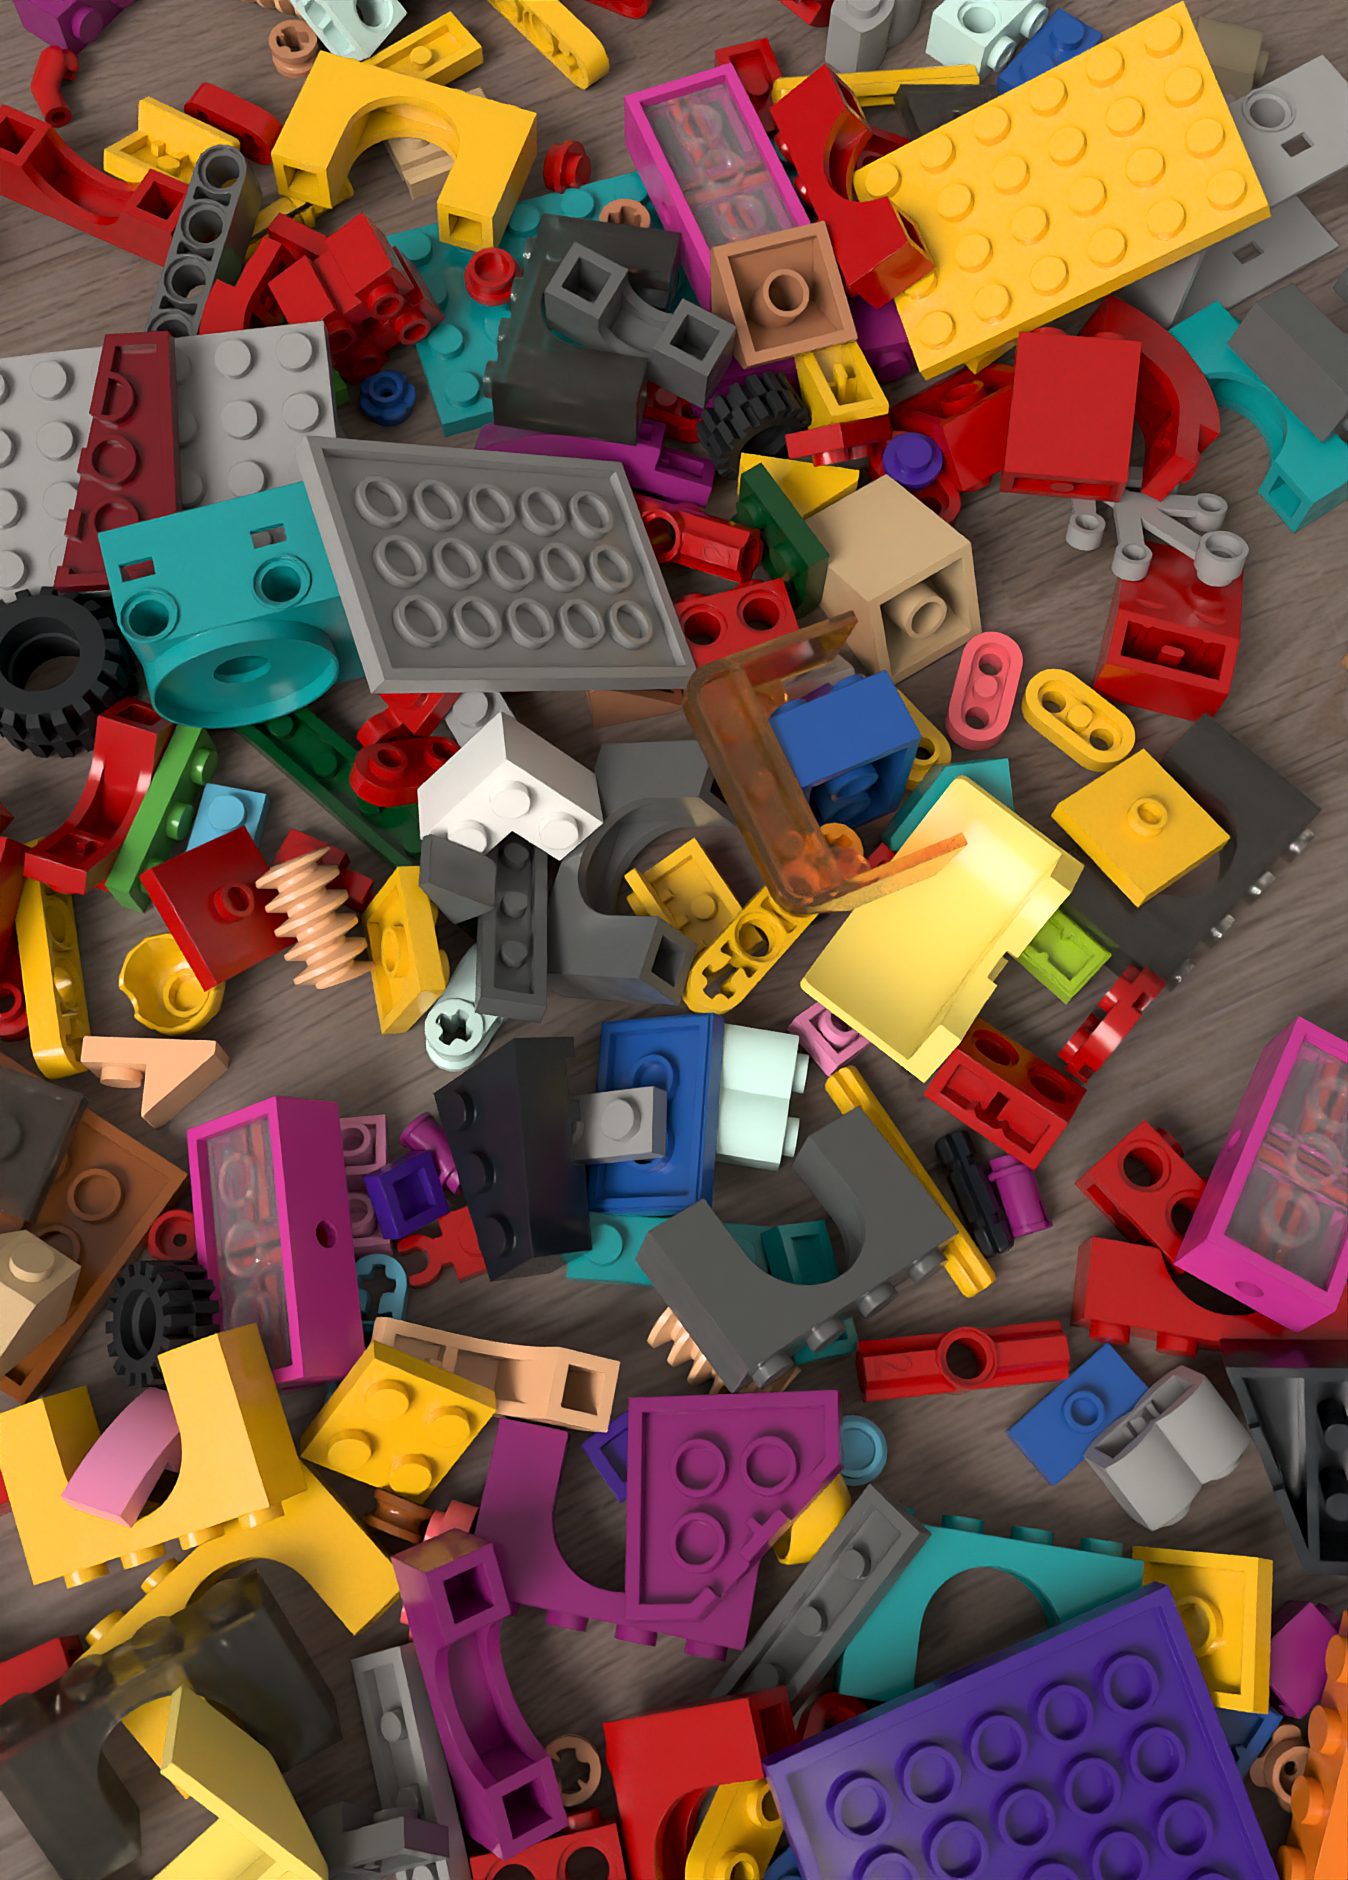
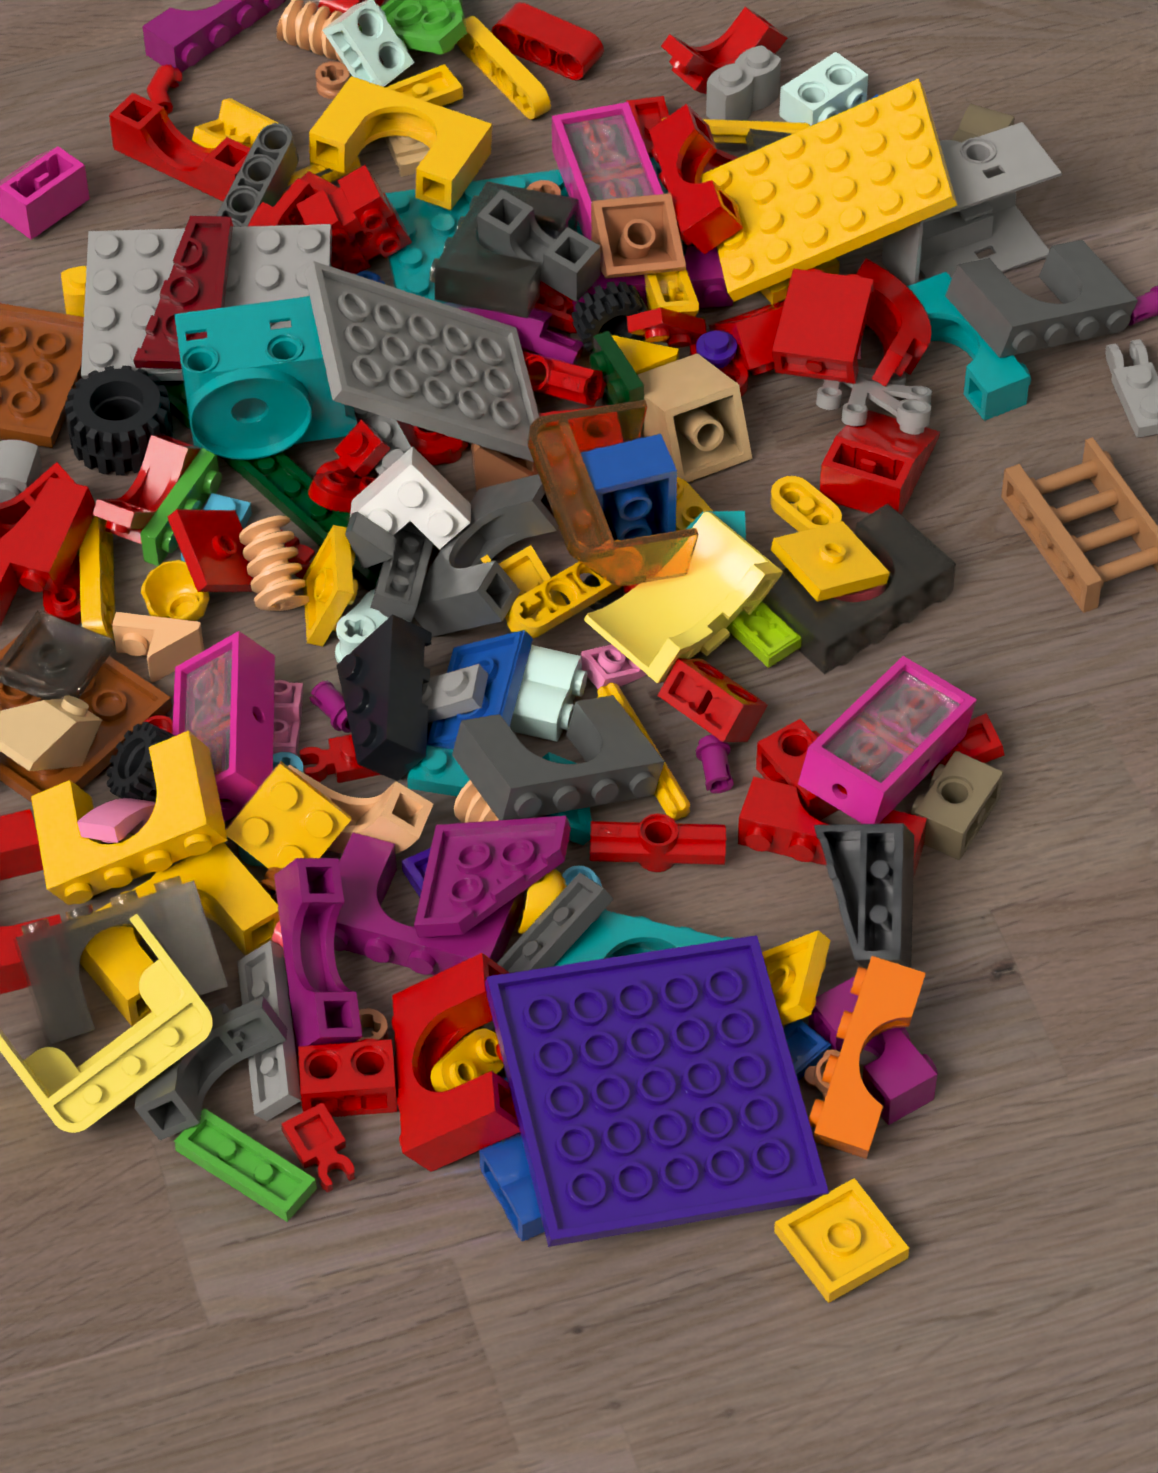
camera: 10 degrees right, 20 degrees down
(247, 122) = (289, 114): red beam -> none
(406, 1194) = (310, 718): dark purple plate -> none
(491, 276) = (445, 218): red plate -> none
(566, 167) = (510, 162): red plate -> none
(974, 1193) = (685, 762): black axle -> none
(982, 694) = (738, 488): coral plate -> none
(1076, 1412) = (732, 885): blue plate -> none
(1124, 1007) = (789, 665): red plate -> none
(1168, 1448) = (783, 898): light grey brick -> none

